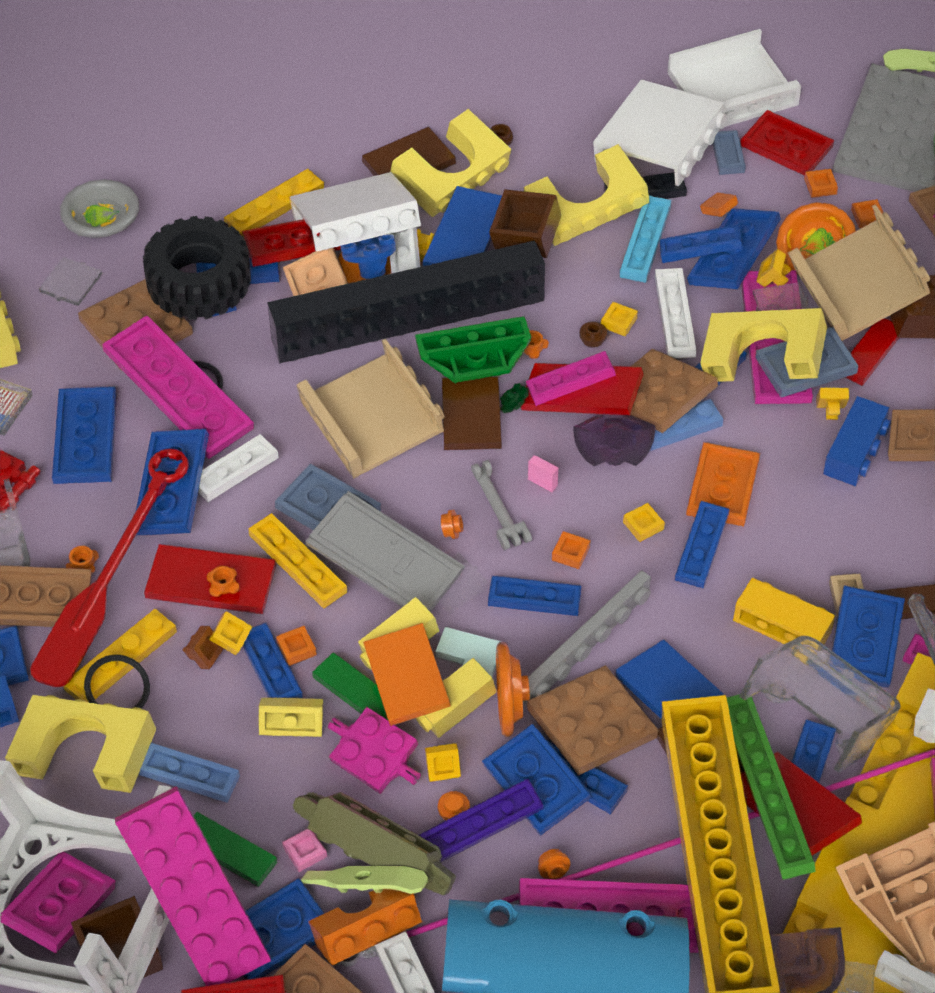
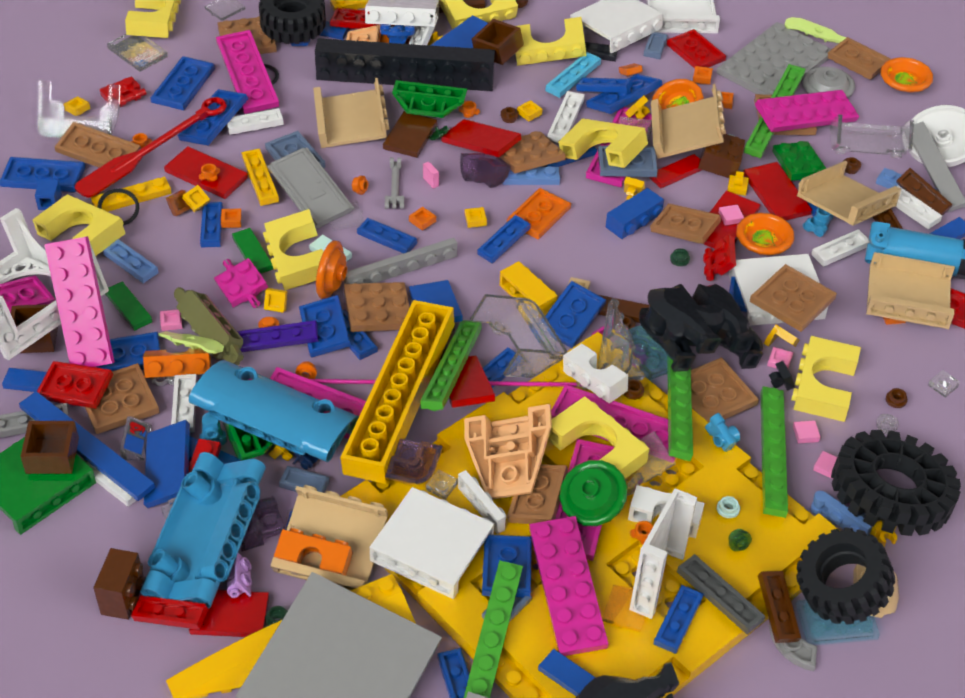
camera: 20 degrees right, 5 degrees down
(291, 717) = (205, 252): light yellow slope -> none
(406, 674) = (278, 245): orange tile -> none
(570, 378) = (476, 129): dark pink tile -> none

